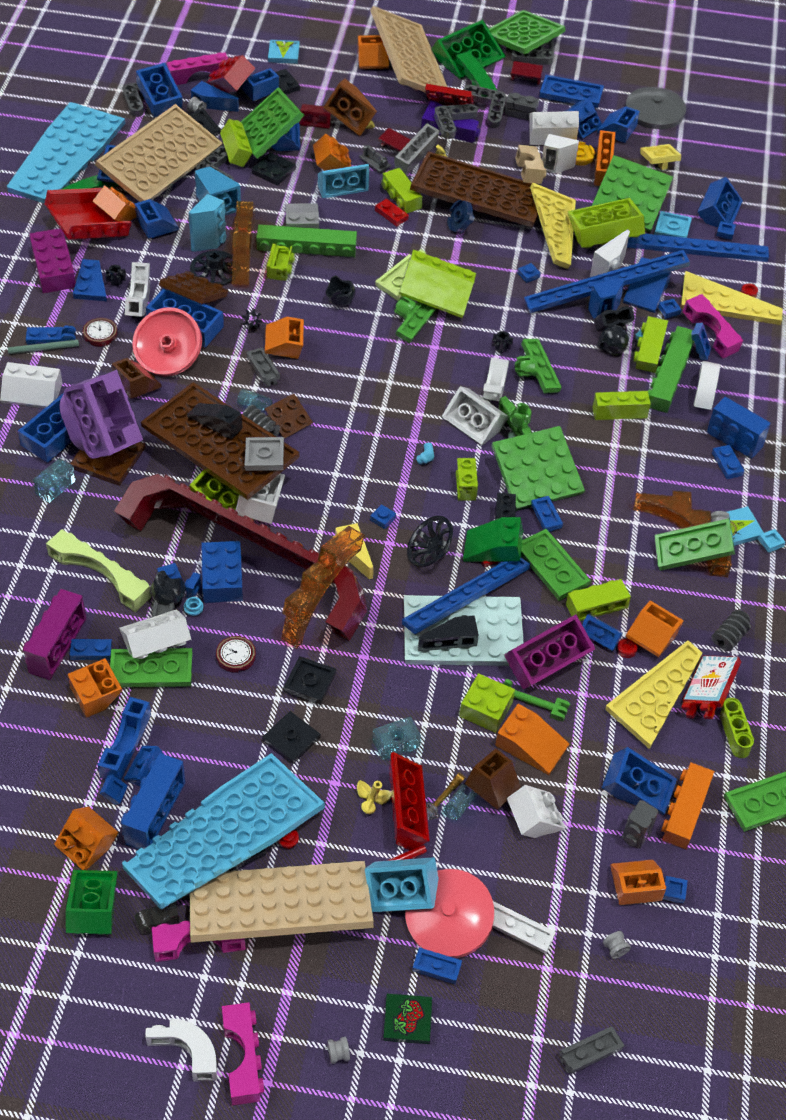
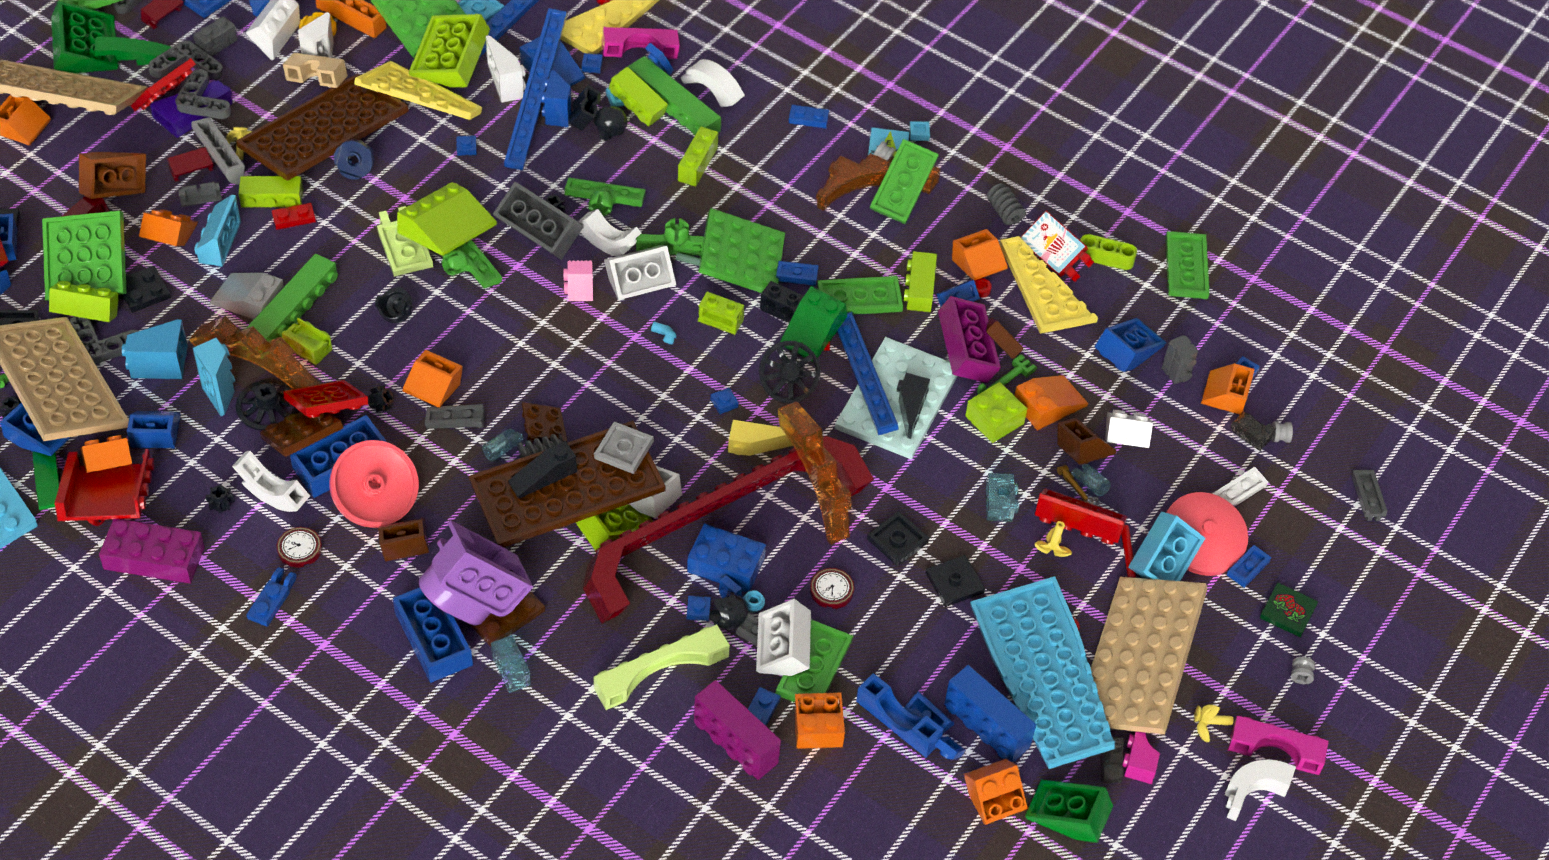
camera: 65 degrees left, 0 degrees up
(30, 385) = (348, 640): white slope -> none
(44, 346) = (285, 611): sand green bar -> none
(90, 282) = (216, 530): blue wing -> none
(226, 286) = (326, 398): none -> red plate
(238, 980) = (1207, 716): none -> light yellow plant
(433, 380) = (579, 281): none -> bright pink brick
(475, 334) = (538, 220): none -> dark grey brick
(570, 677) = (1003, 338): none -> reddish brown slope
(602, 919) = (1252, 431): none -> clear smoke leg
(687, 806) = (1167, 318): orange brick -> none
(738, 427) = (783, 85): blue brick -> none

